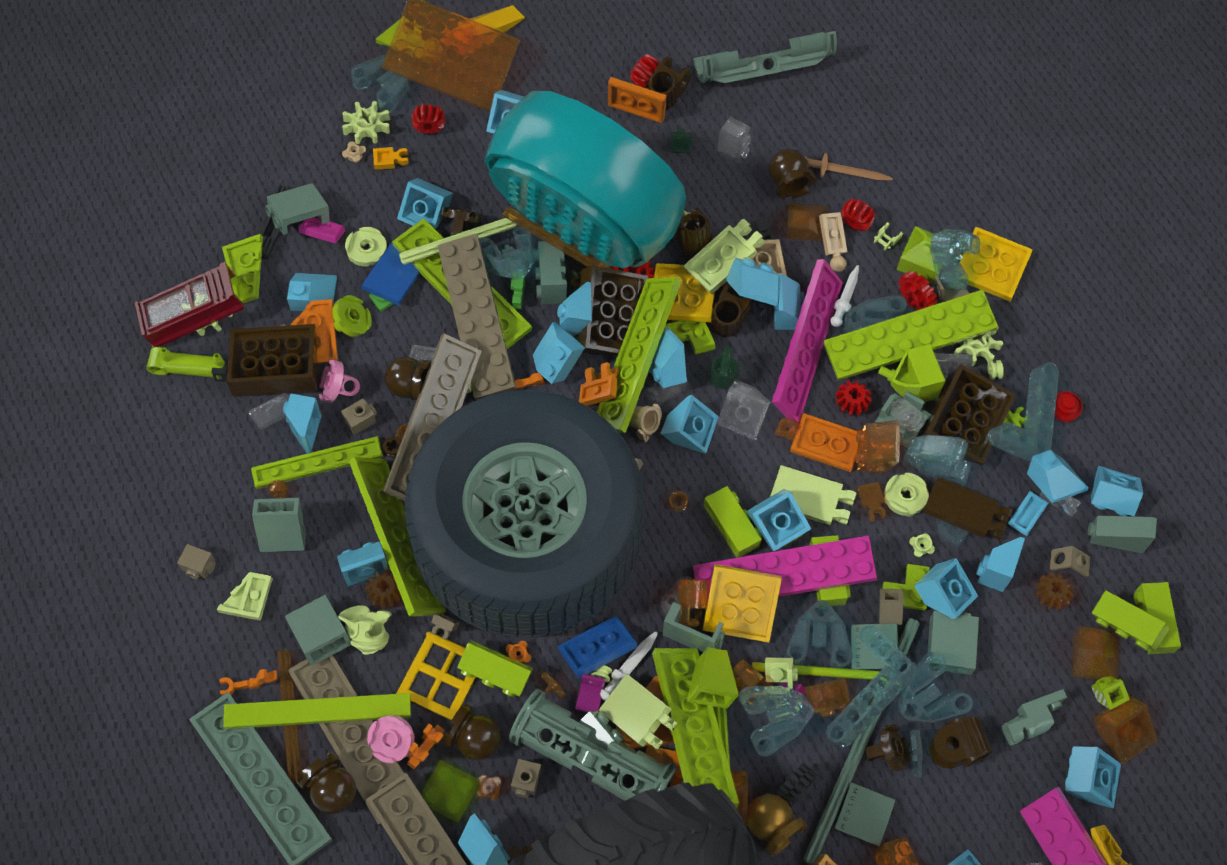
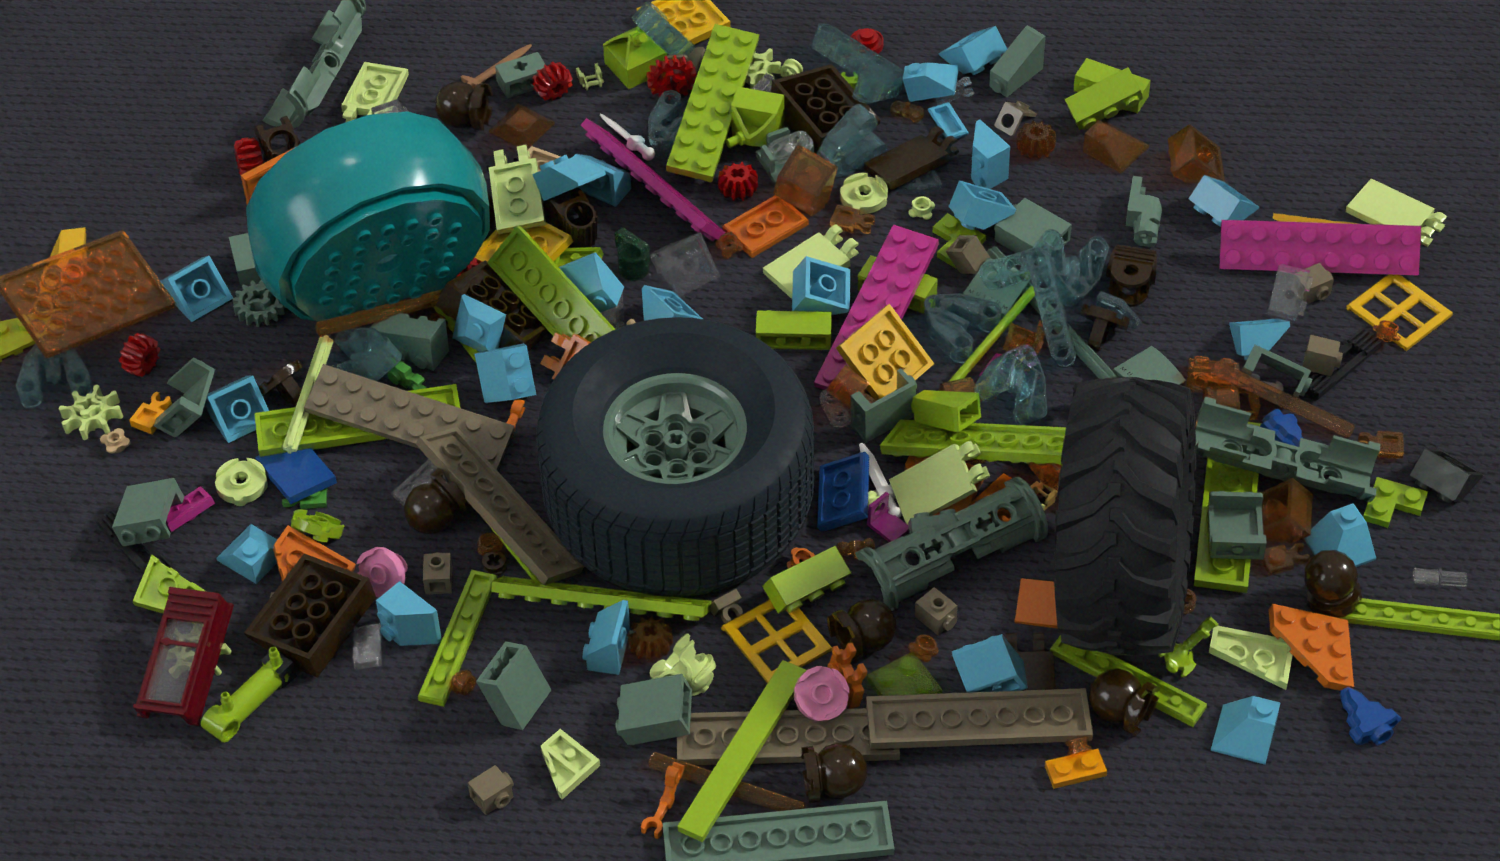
camera: 55 degrees left, 15 degrees down
(390, 180) = (194, 381): none -> sand green panel
(767, 108) = (373, 87): none -> yellowish green tile
(781, 670) = (972, 361): yellowish green bracket -> none
(834, 239) = (558, 111): tan plate -> none
(849, 186) = (516, 75): none -> sand green brick
(1018, 476) = (907, 110): none -> clear orange piece
(1107, 687) = (1157, 148): lime brick -> none

